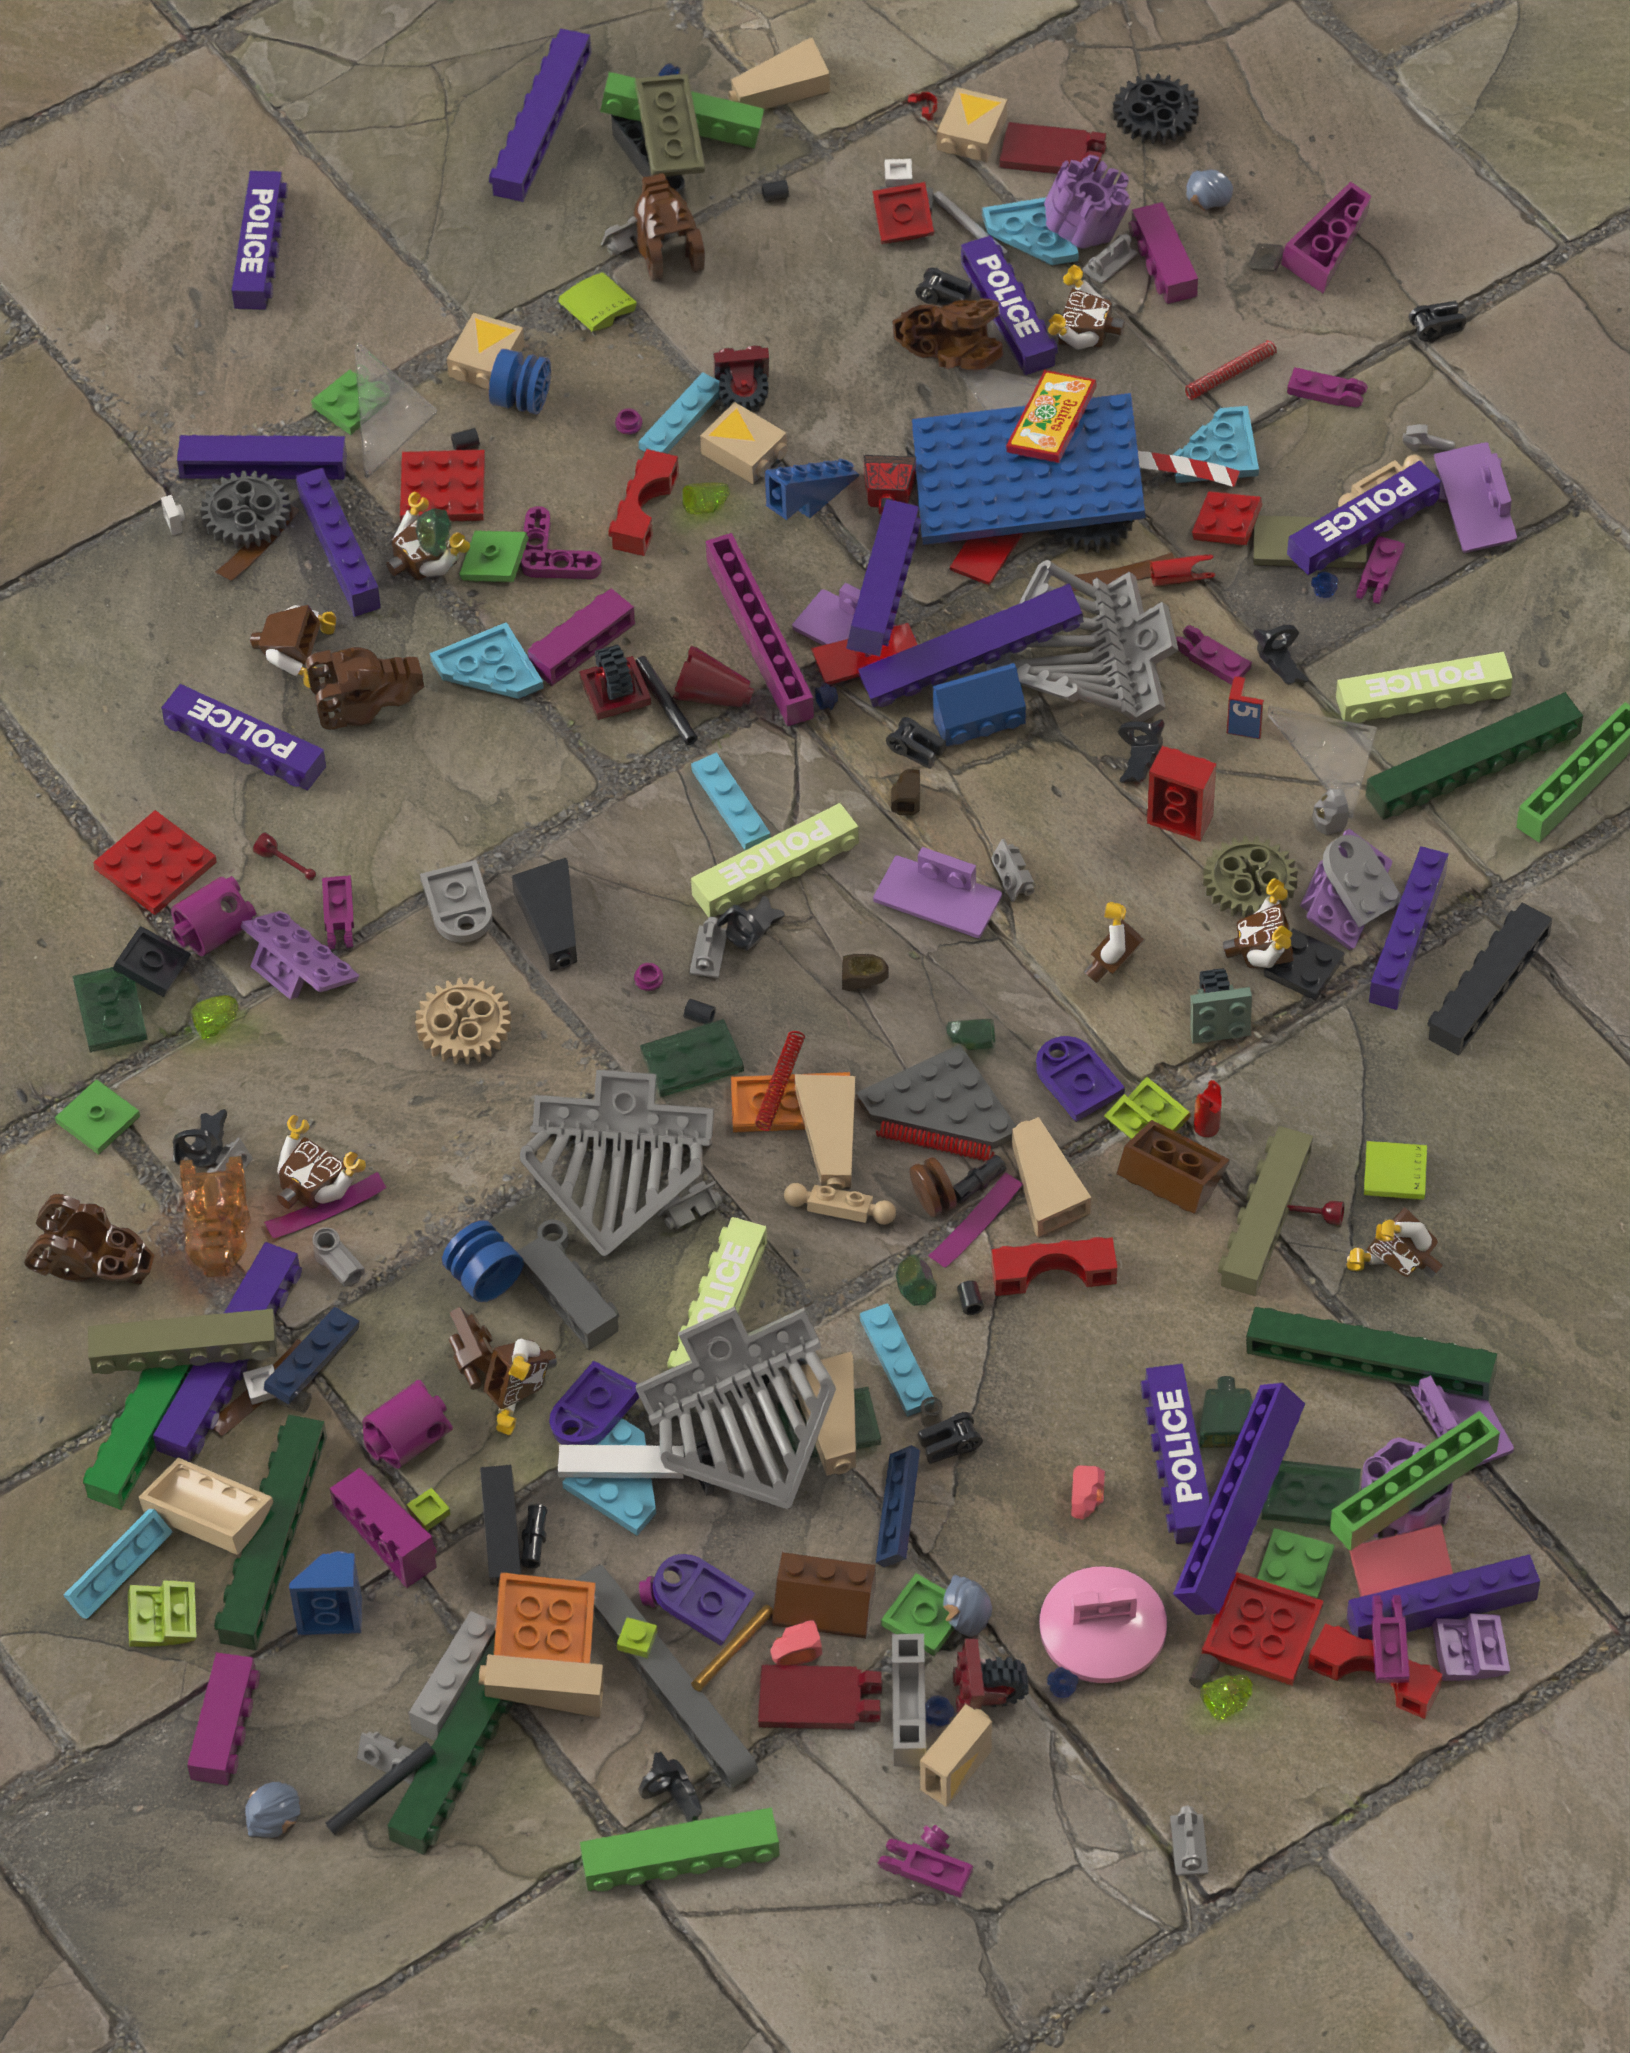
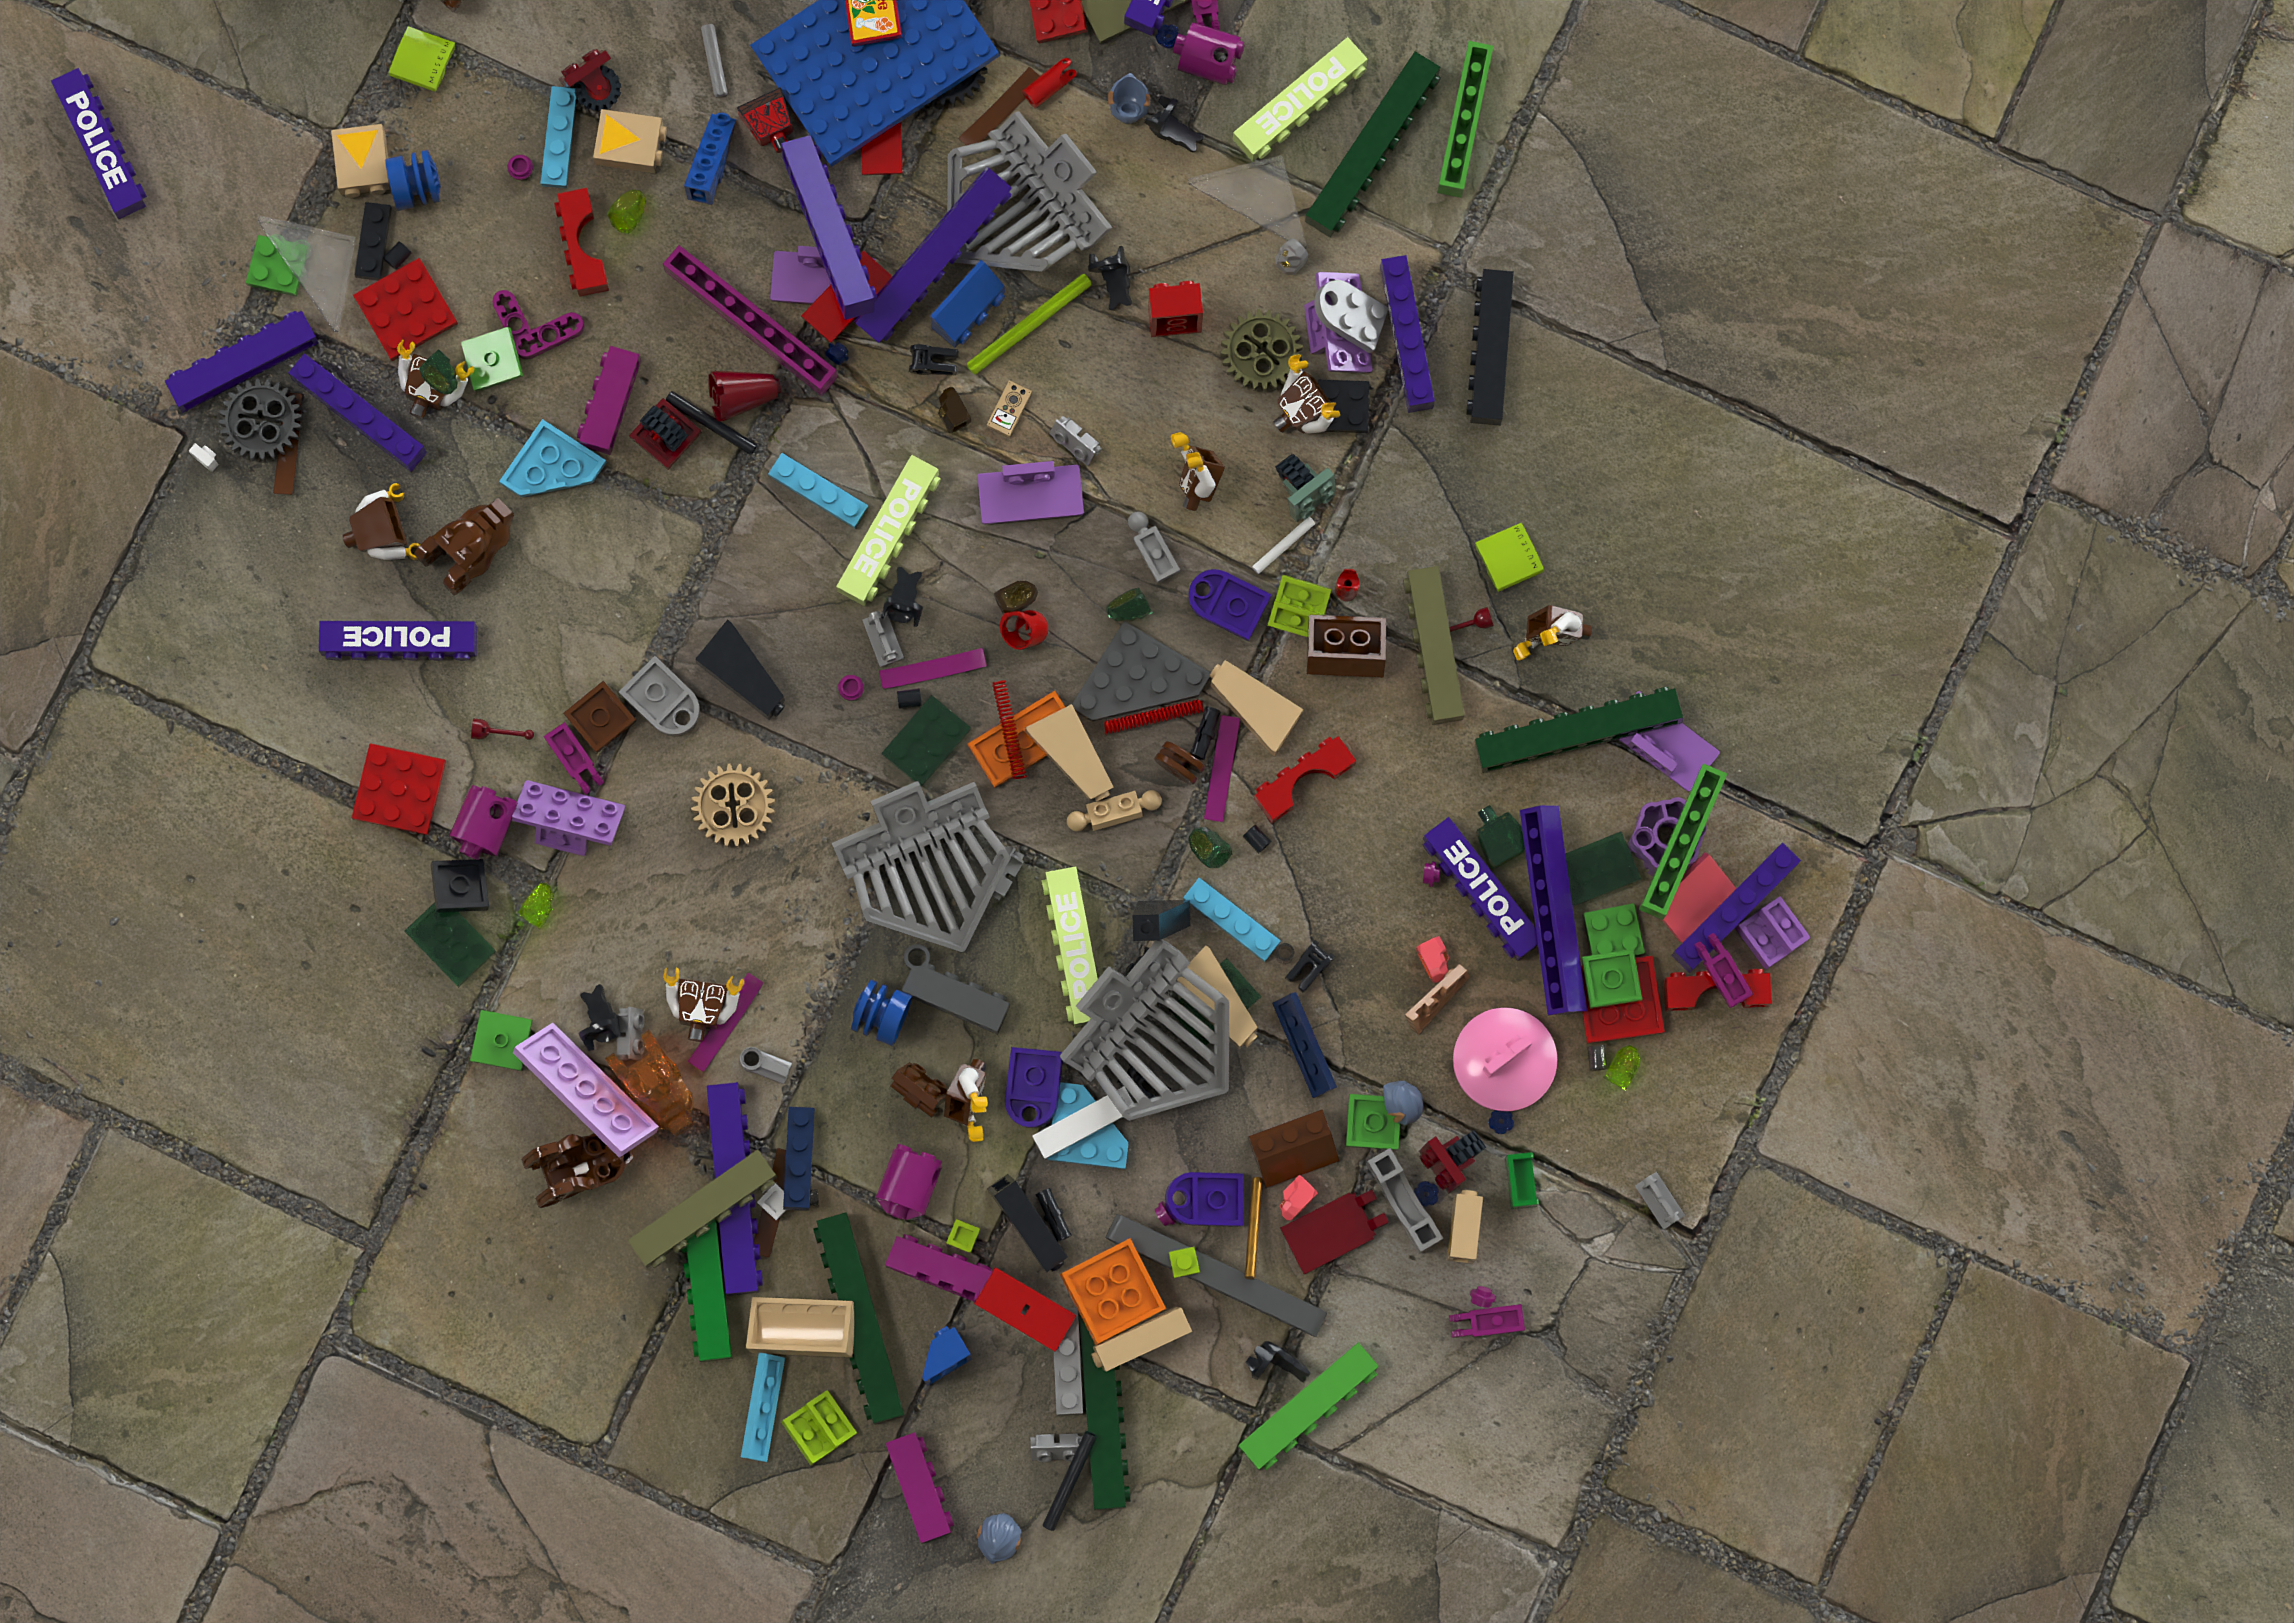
camera: 35 degrees left, 25 degrees up
(144, 1186) = (585, 1089): none -> lavender plate
(387, 888) = (599, 717): none -> reddish brown plate
(451, 419) = (373, 241): none -> black plate
(453, 1611) = (1006, 1298): none -> red piece
(740, 1001) = (932, 669): none -> magenta sticker
(823, 1305) = (1160, 919): none -> black slope
(861, 1009) = (1032, 619): none -> red helmet
(869, 418) = (714, 60): none -> light grey axle
(964, 817) = (1009, 408): none -> tan tile
(1030, 995) = (1152, 548): none -> light grey plate
(1031, 756) = (1028, 324): none -> lime axle
(1048, 1746) = (1521, 1181): none -> green panel
(1062, 1527) = (1436, 999): none -> medium nougat wing
(1132, 1413) = (1431, 874): none -> magenta plate
(1166, 1055) = (1283, 545): none -> white bar
(1212, 655) = (1119, 152): magenta hinge -> none
(1244, 712) = (1173, 205): panel -> none
(1250, 611) = (1129, 99): none -> sand blue hair
(1264, 1596) = (1611, 978): none -> bright green plate
(1355, 607) = (1200, 49): none -> magenta cylinder

